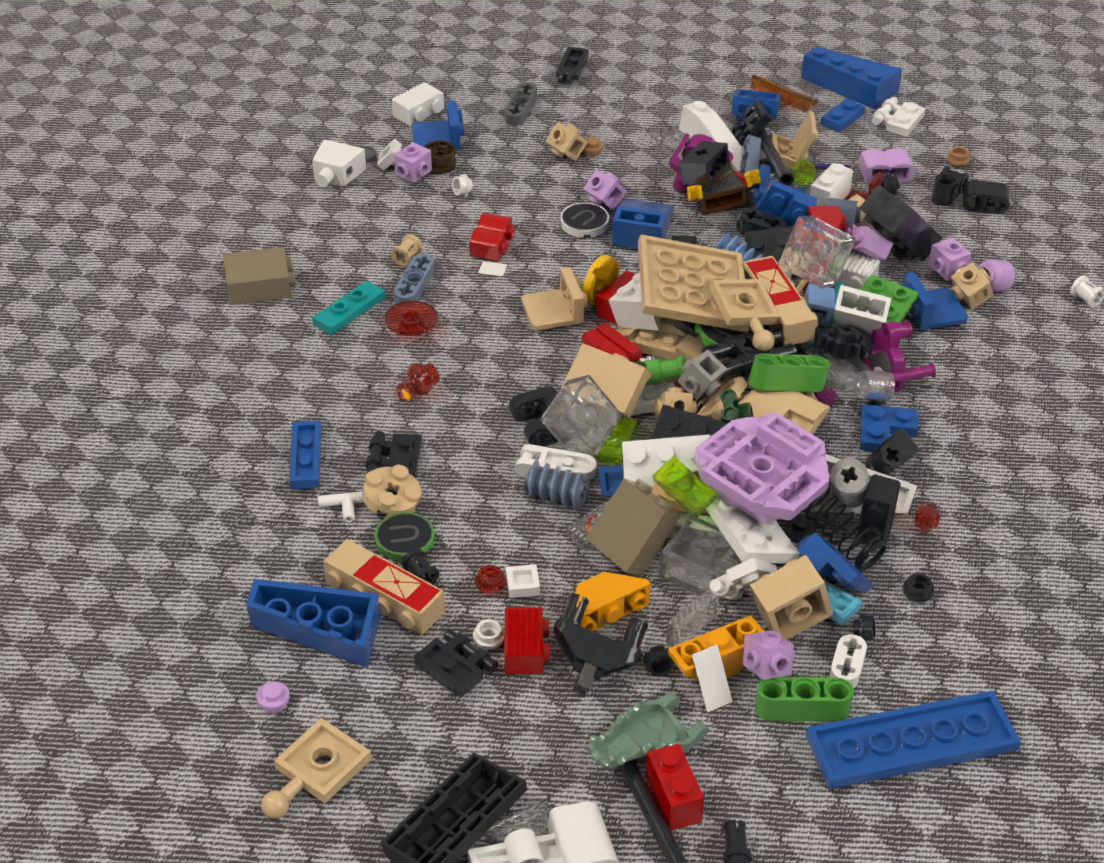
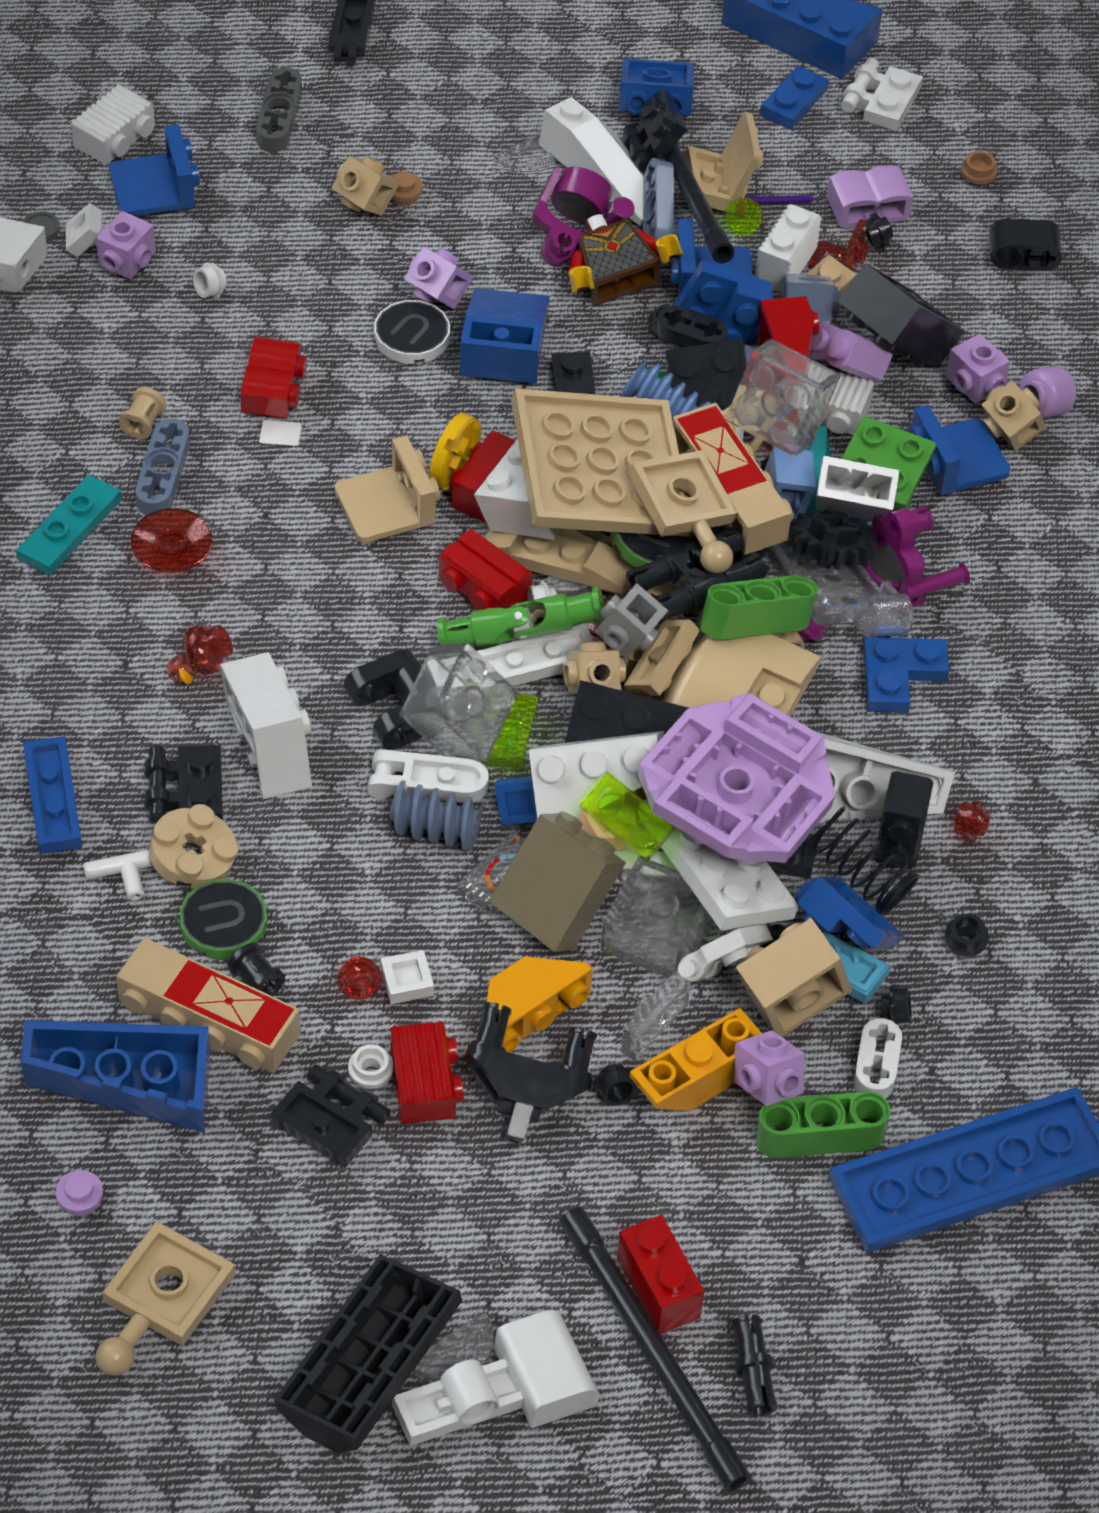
camera: 10 degrees left, 10 degrees up
(442, 156) = (171, 225): dark brown wheel -> none
(455, 423) = (270, 721): none -> white wedge
(614, 374) = (495, 628): tan container -> none
(644, 729) = (609, 1198): sand green animal -> none
(704, 163) = (592, 227): black brick -> none
(712, 678) = (694, 1107): white sticker -> none
(732, 408) = (686, 684): dark green plate -> none
(788, 95) = (706, 62): clear orange slope -> none
(849, 481) = (853, 768): light grey piece -> none
(892, 453) = (915, 719): black piece -> none
(948, 186) = (967, 227): black piece -> none

